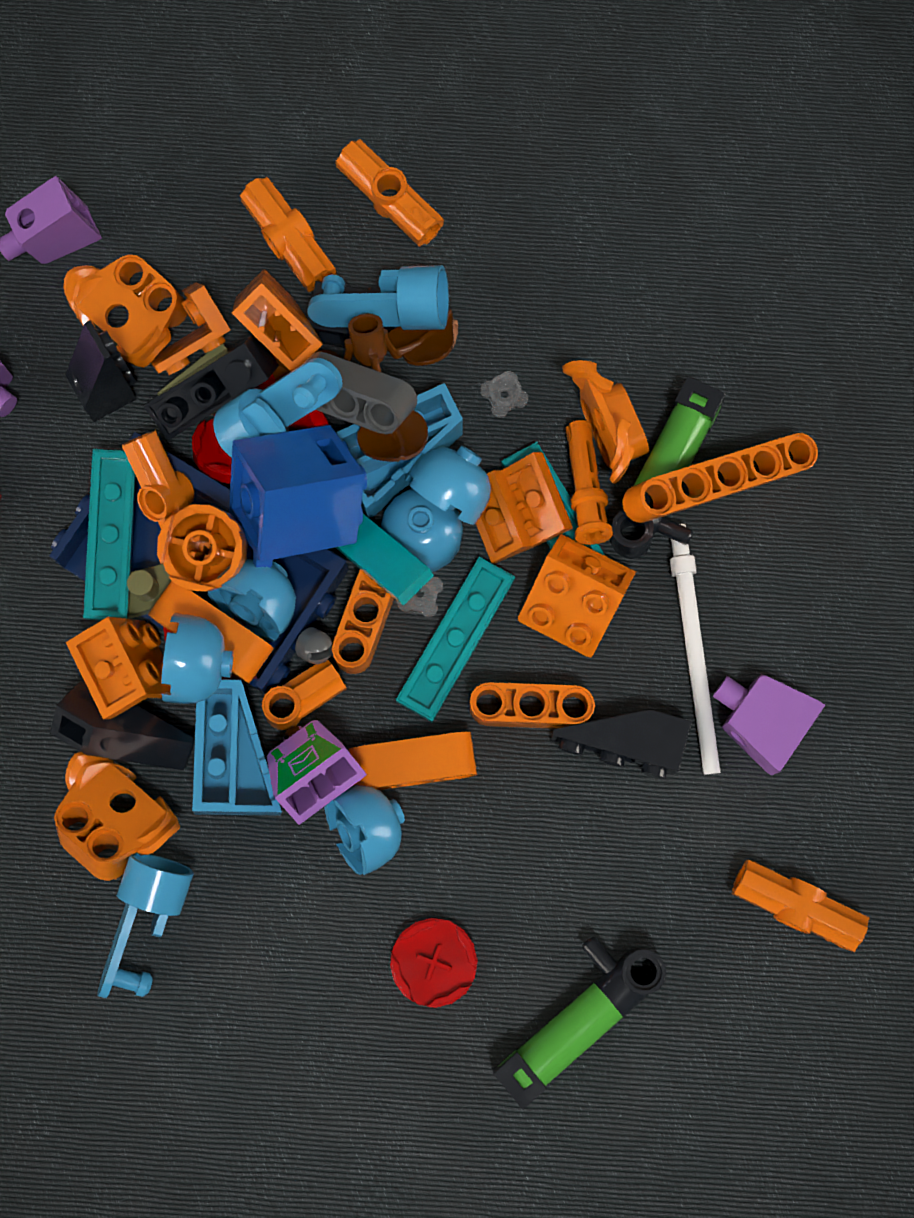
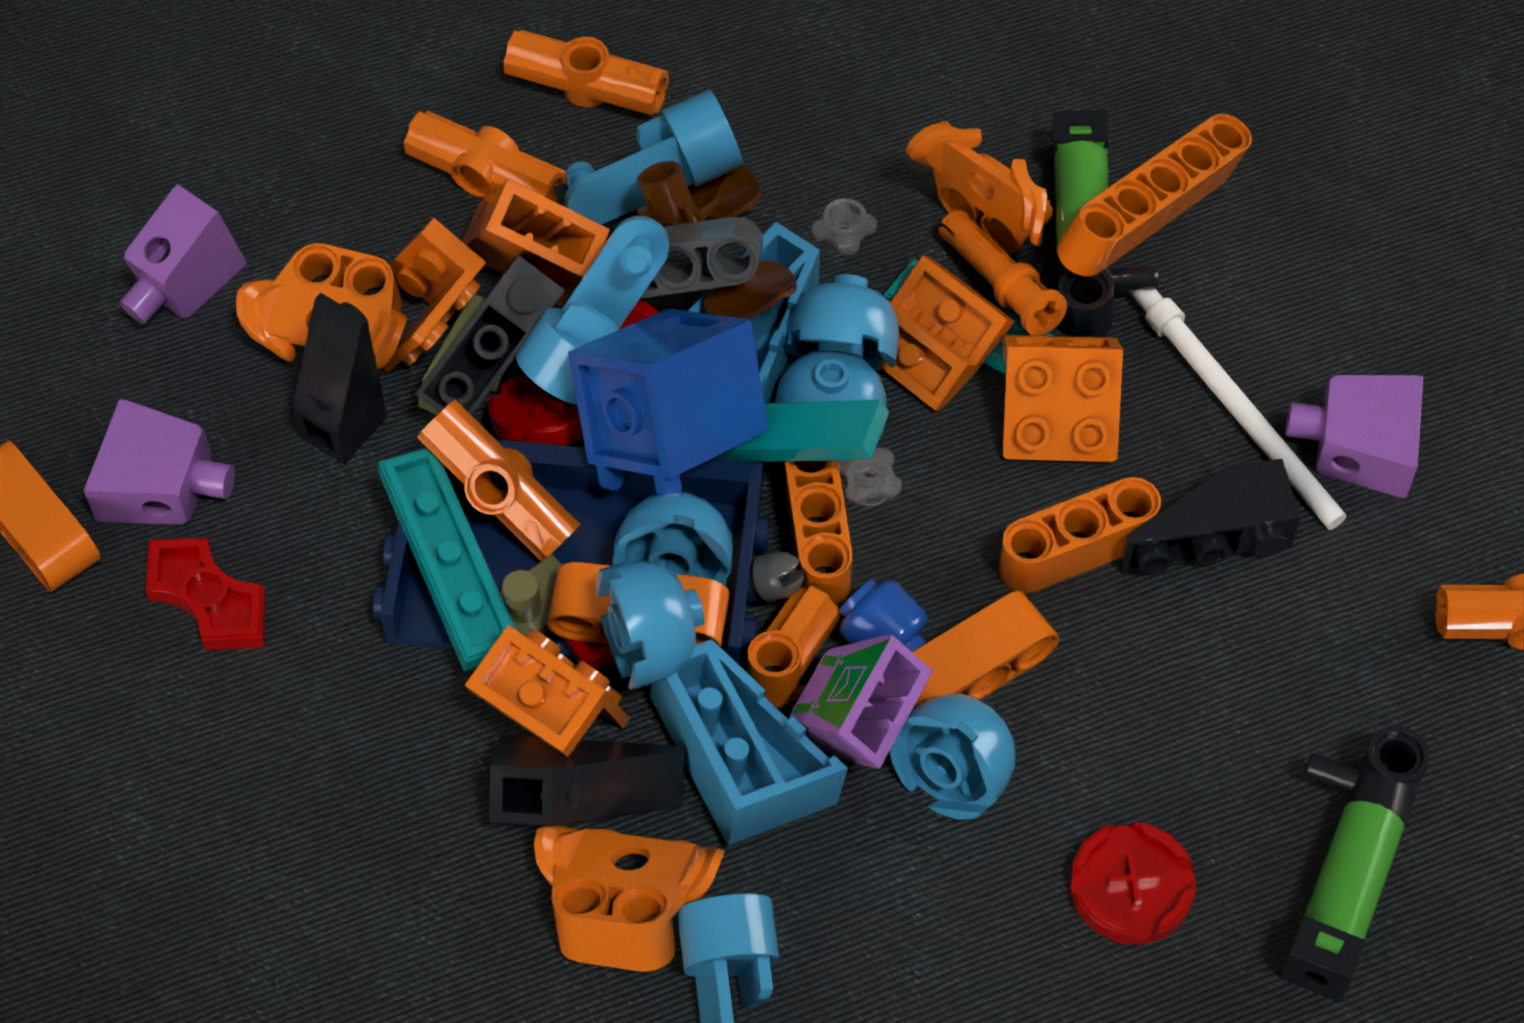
camera: 25 degrees left, 20 degrees down
(185, 547) = (582, 476): orange cylinder -> none
(369, 709) = (883, 611): none -> blue head
(455, 639) = (942, 510): teal tile -> none

